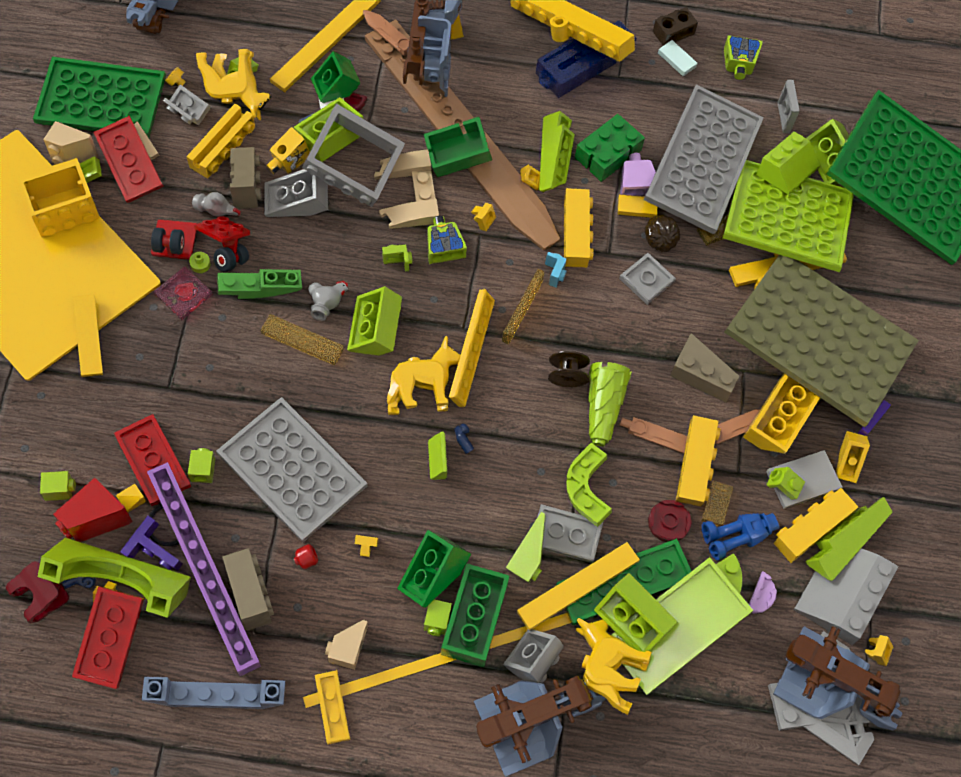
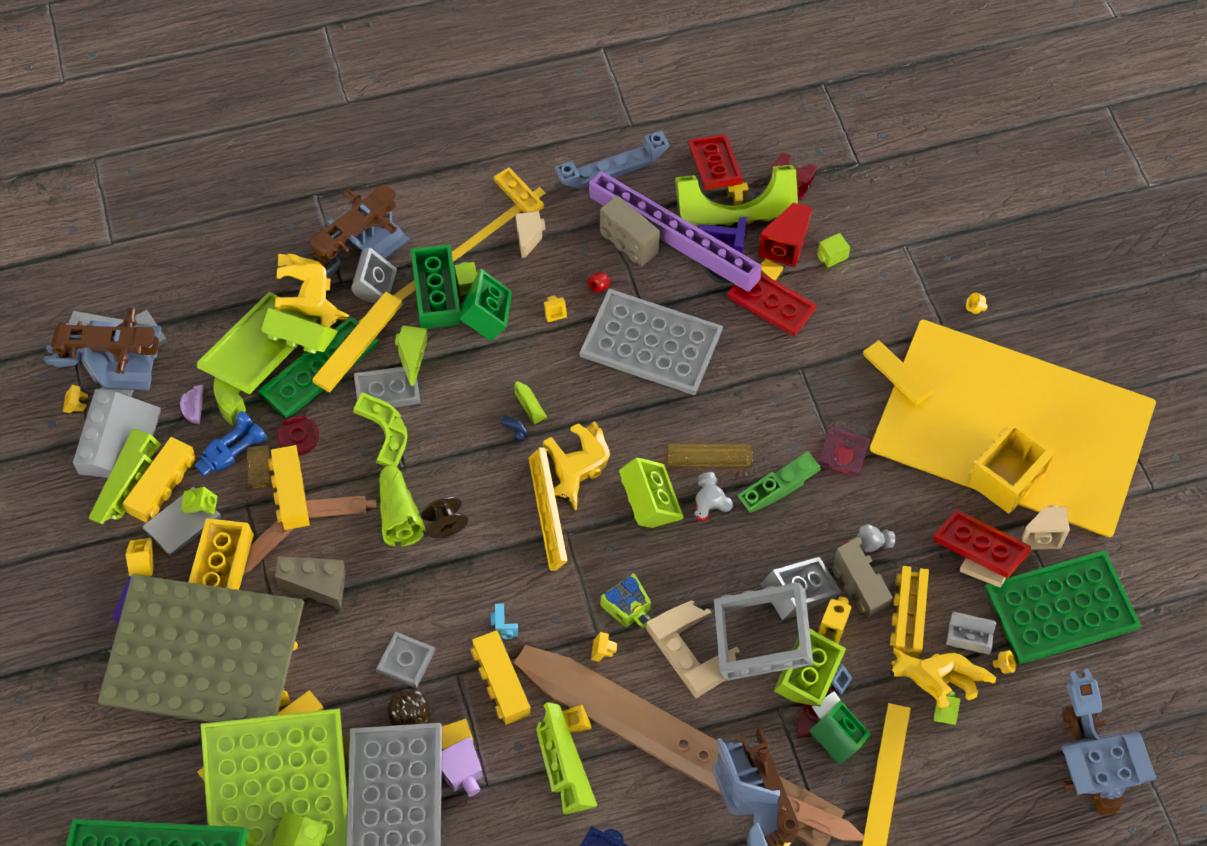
camera: 160 degrees right, 5 degrees down
(91, 169) = (1016, 521): lime bracket -> none
(173, 239) = (885, 488): red plate -> none
(200, 262) = (848, 485): lime tile -> none
(201, 465) = (727, 311): lime brick -> none
(228, 233) = (839, 510): red plate -> none
(397, 254) = (669, 568): lime bracket -> none
(456, 151) = (664, 700): green piece -> none
(523, 306) = (517, 570): clear yellow tile -> none
(609, 147) = (505, 787): green piece -> none

